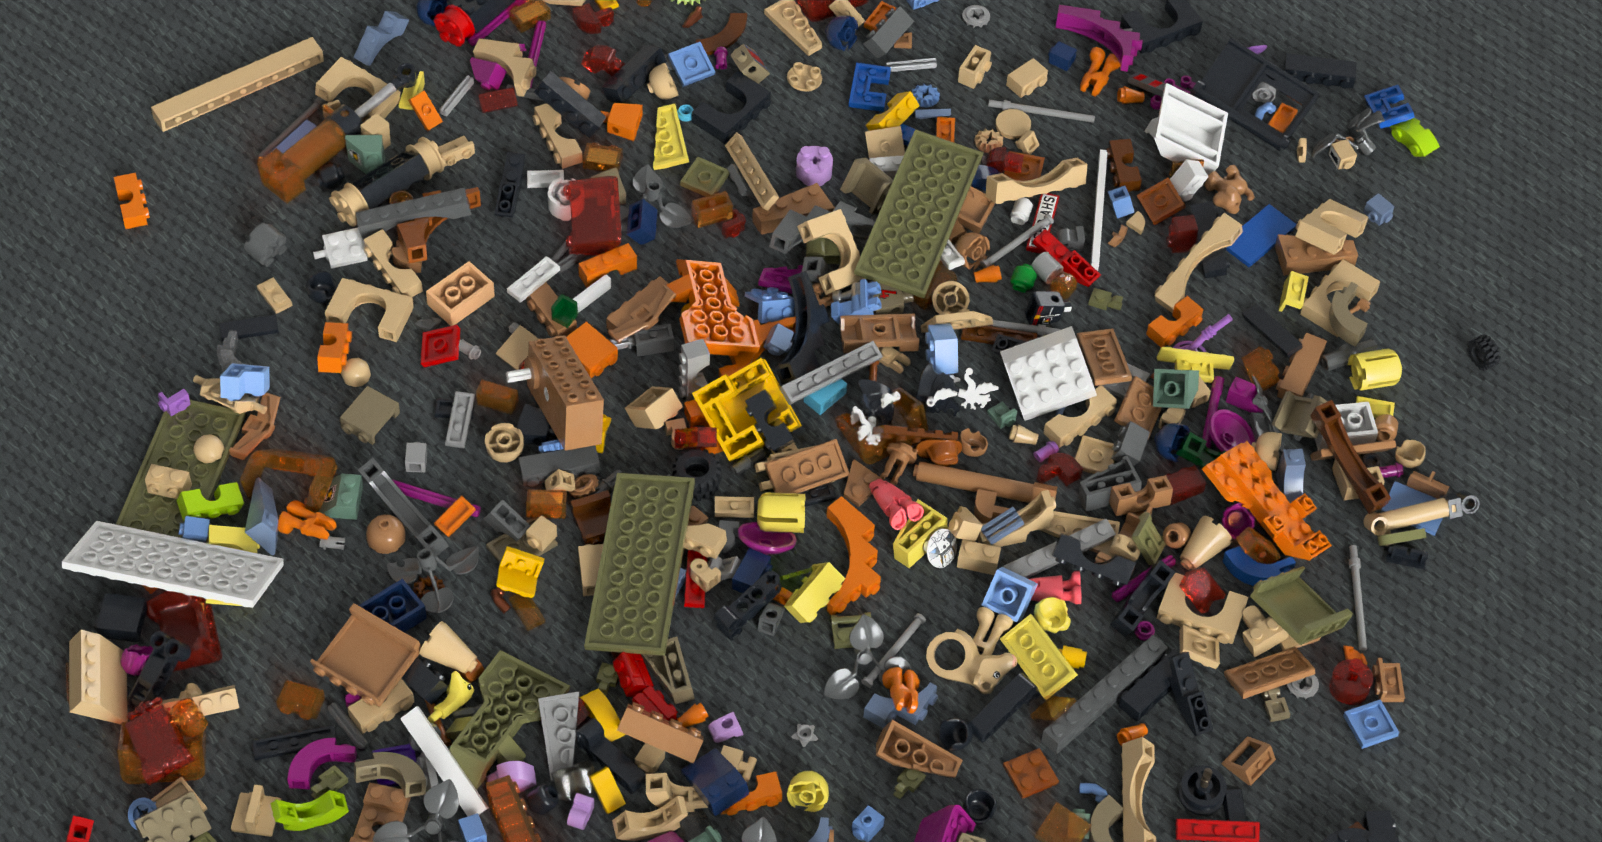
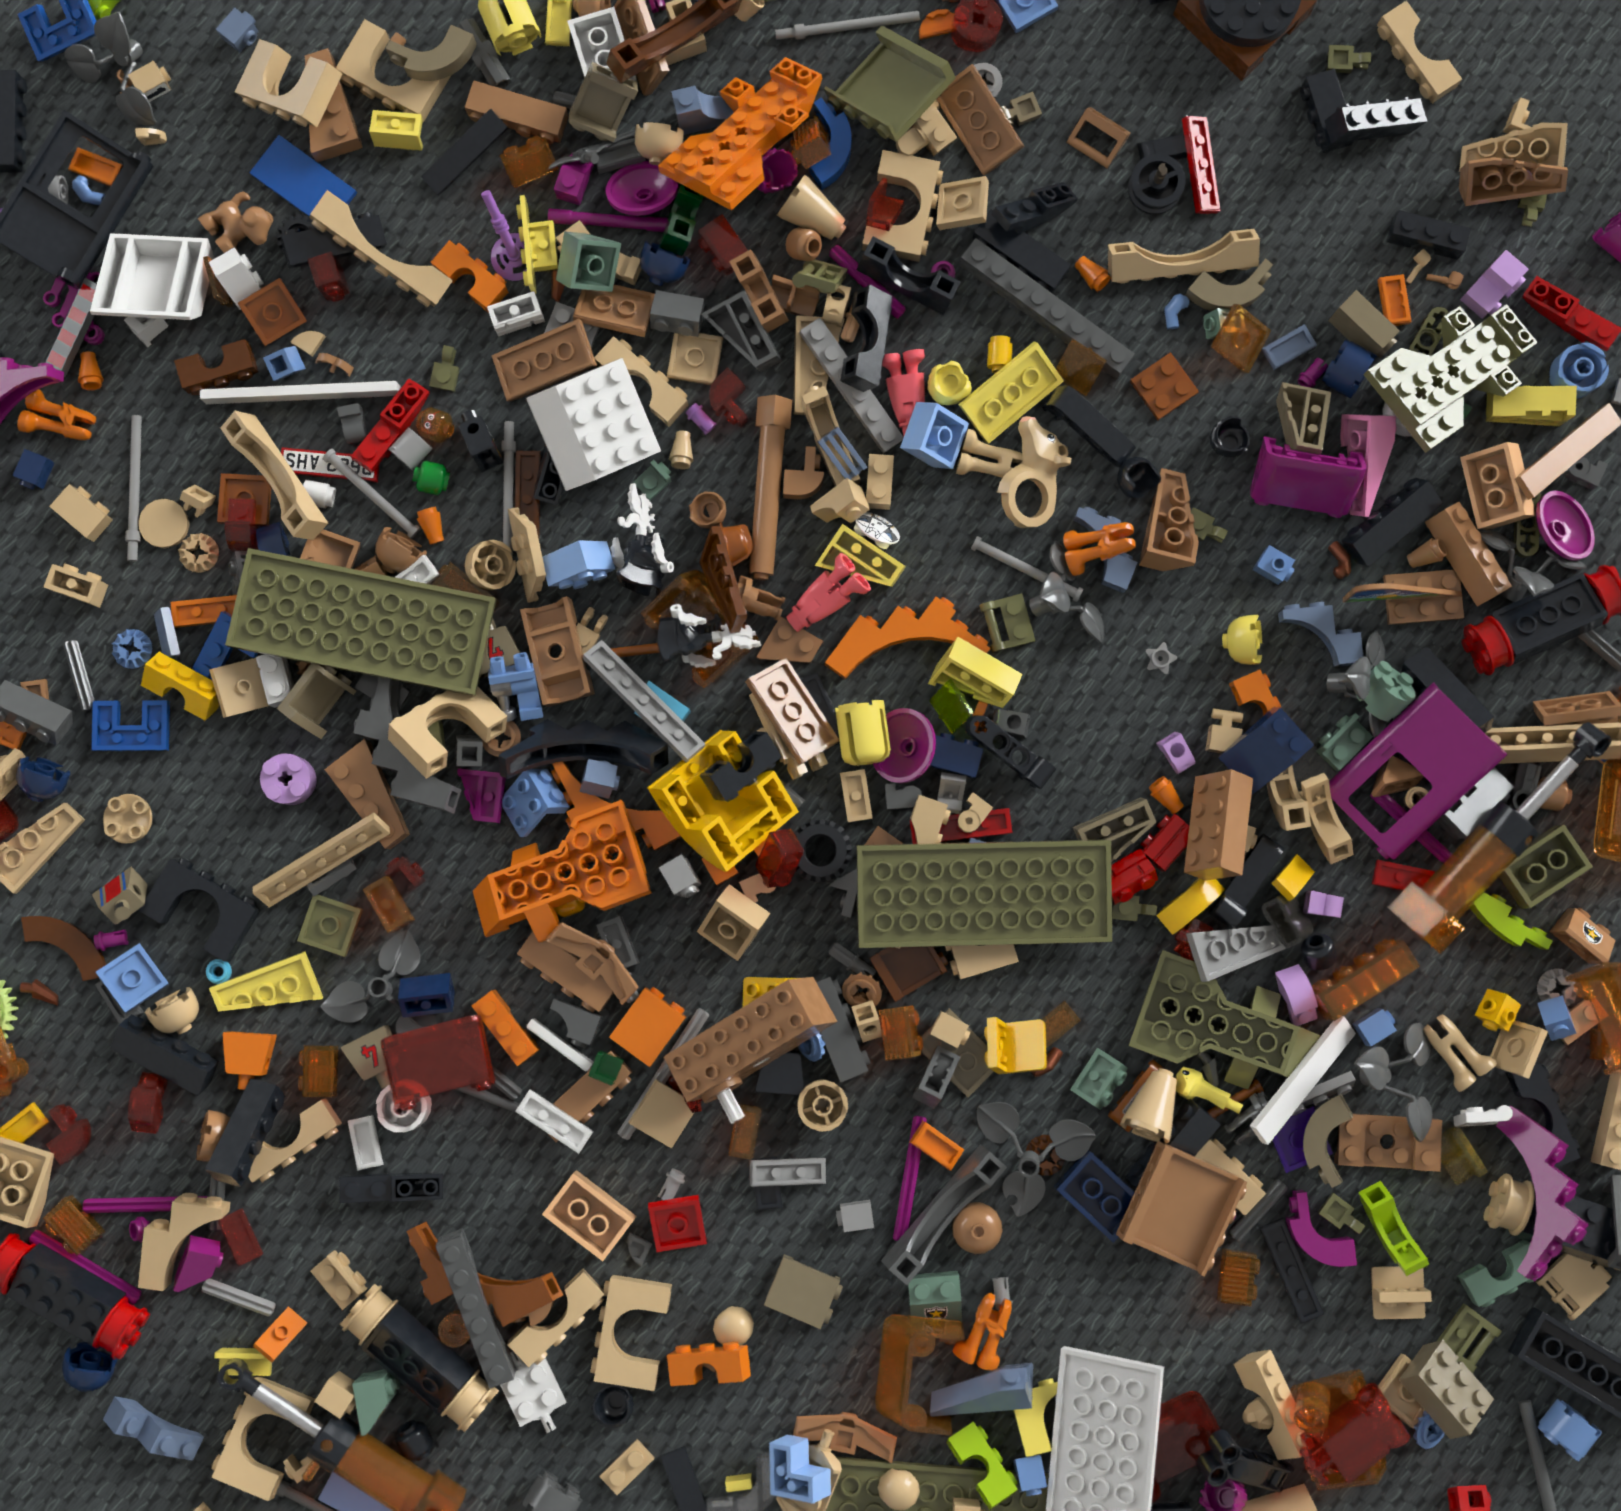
camera: 90 degrees left, 30 degrees up
(243, 355) = (739, 1482): none -> light yellow tile
(477, 633) = (1099, 1079): none -> sand green bracket
(599, 308) = (580, 1022): none -> dark grey arch
(1142, 343) = (515, 313): none -> white brick

